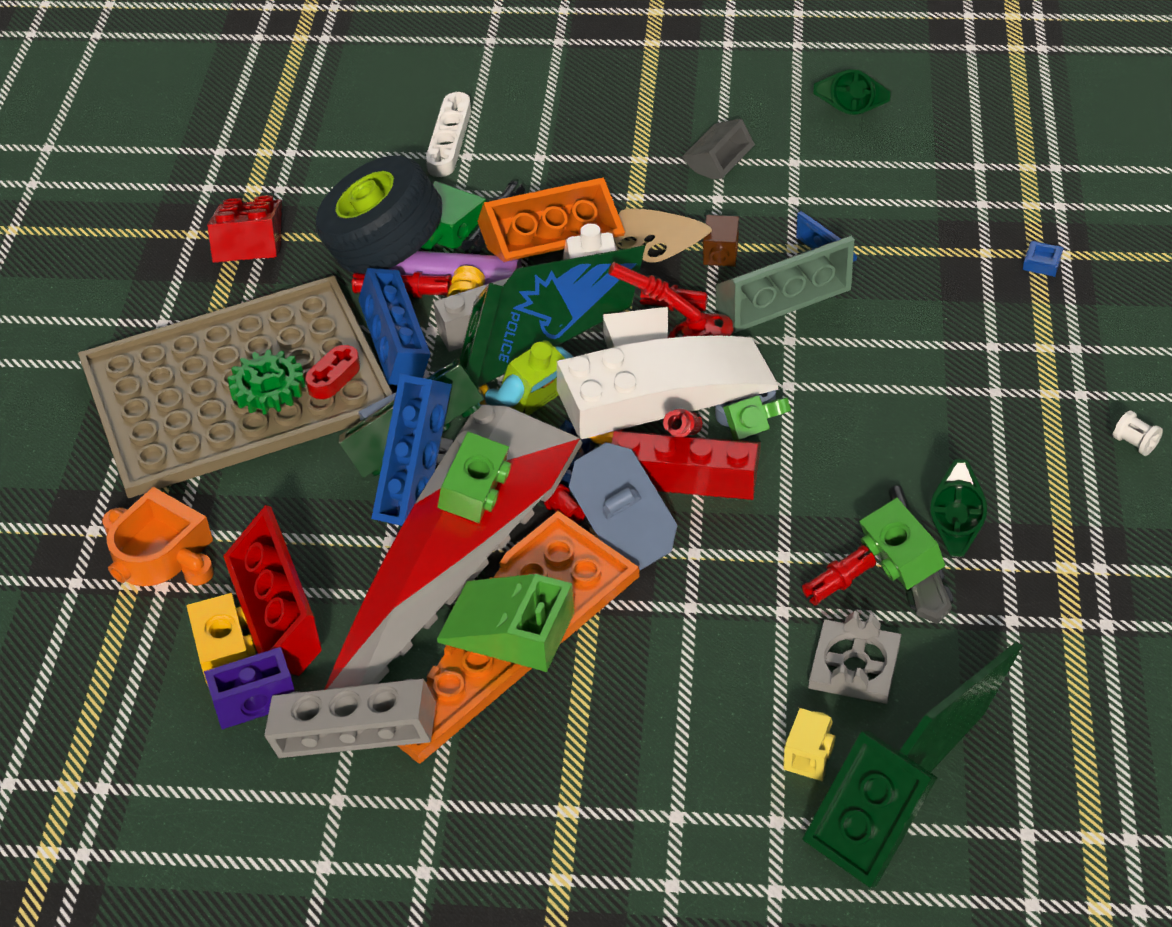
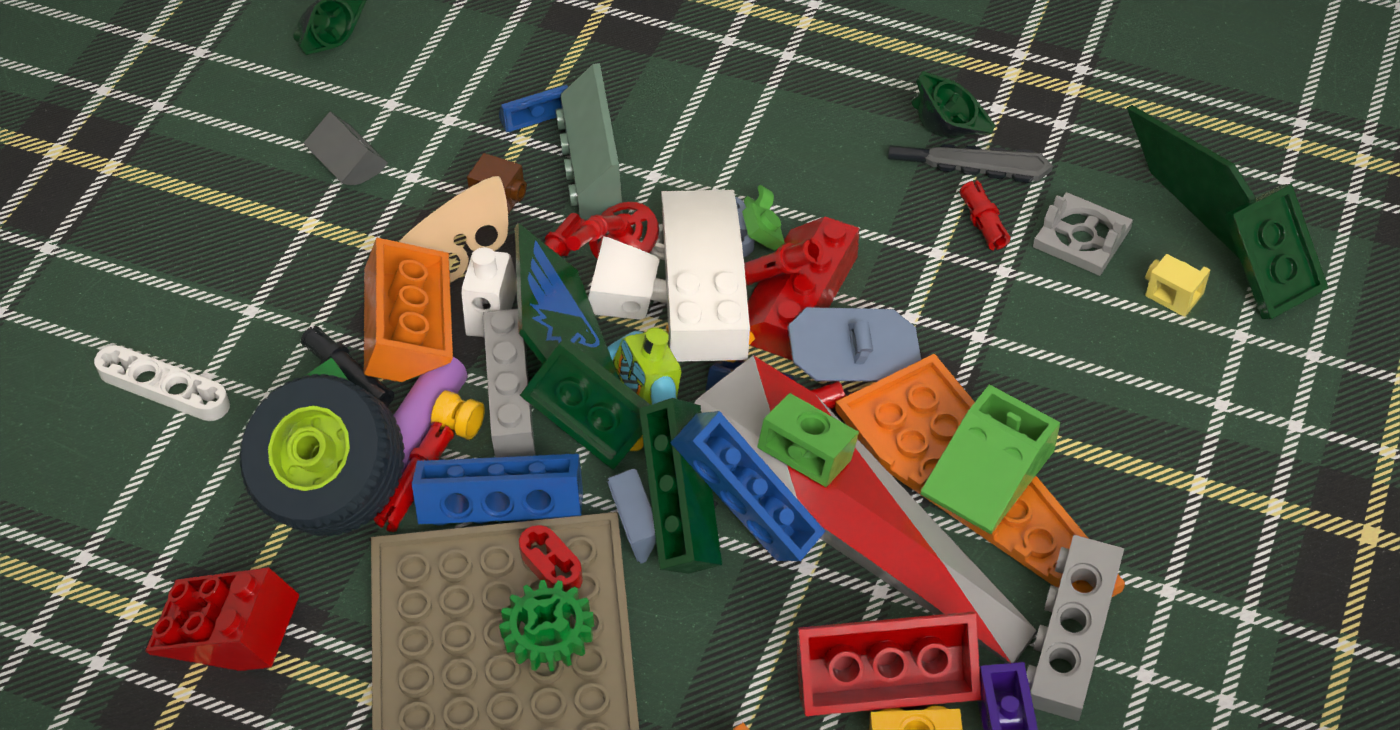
camera: 75 degrees left, 5 degrees up
(901, 544) = (988, 142): bright green brick -> none

